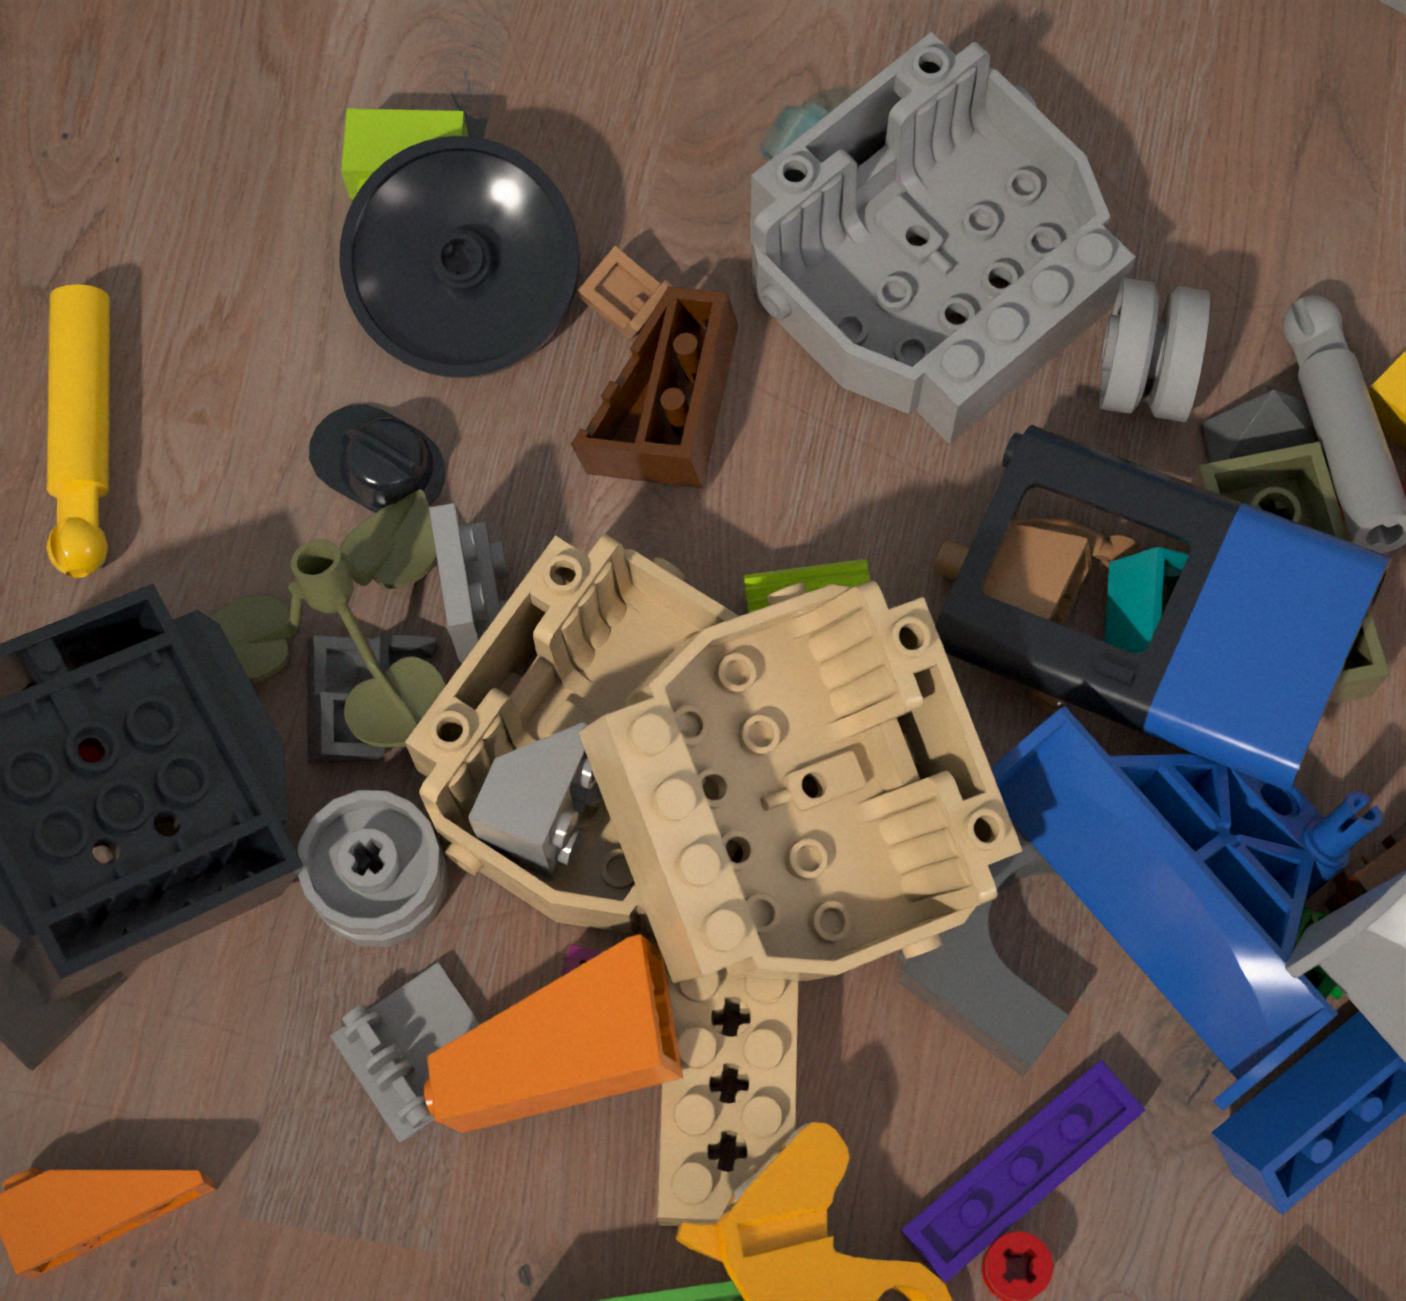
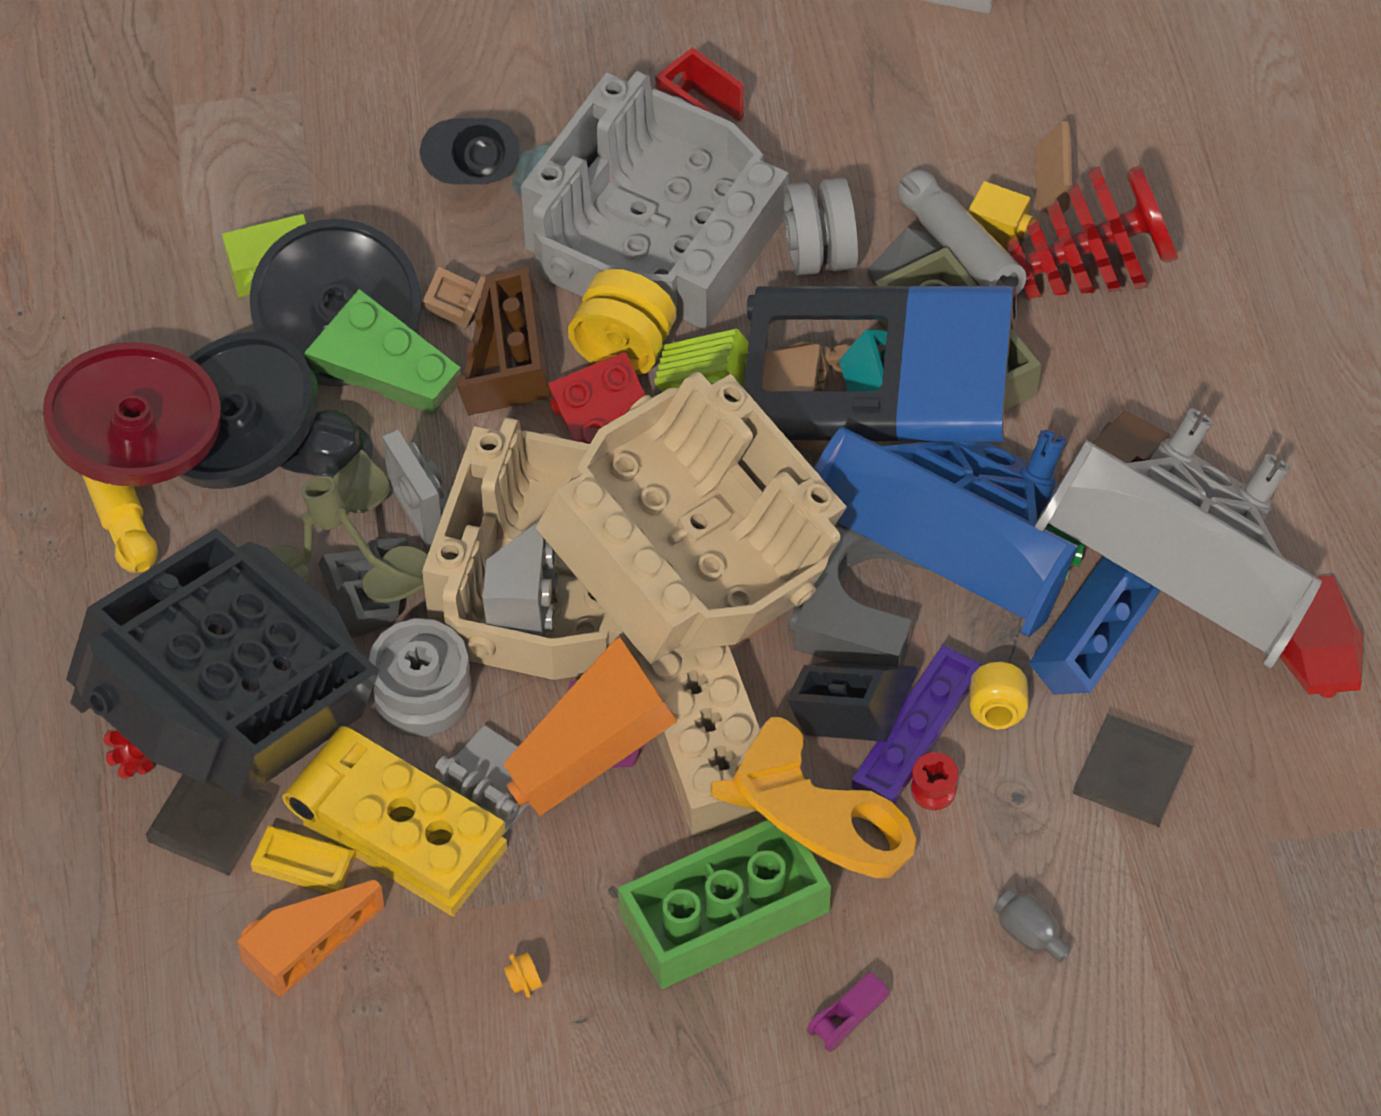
camera: 20 degrees left, 15 degrees down
(126, 351) = (131, 414): none -> dark red dish
(132, 1085) = (303, 860): none -> yellow tile
(228, 1029) = (397, 819): none -> yellow hinge
(274, 381) = (264, 407): none -> black dish
(490, 360) = (384, 355): none -> bright green wedge
(717, 81) = (469, 151): none -> black piece
(763, 521) = (595, 396): none -> red hinge
(830, 413) = (621, 315): none -> yellow wheel
(917, 517) = (711, 355): none -> lime brick
(946, 1102) = (850, 698): none -> black slope
(1079, 63) = (706, 79): none -> red piece
(1152, 1165) = (998, 695): none -> yellow head

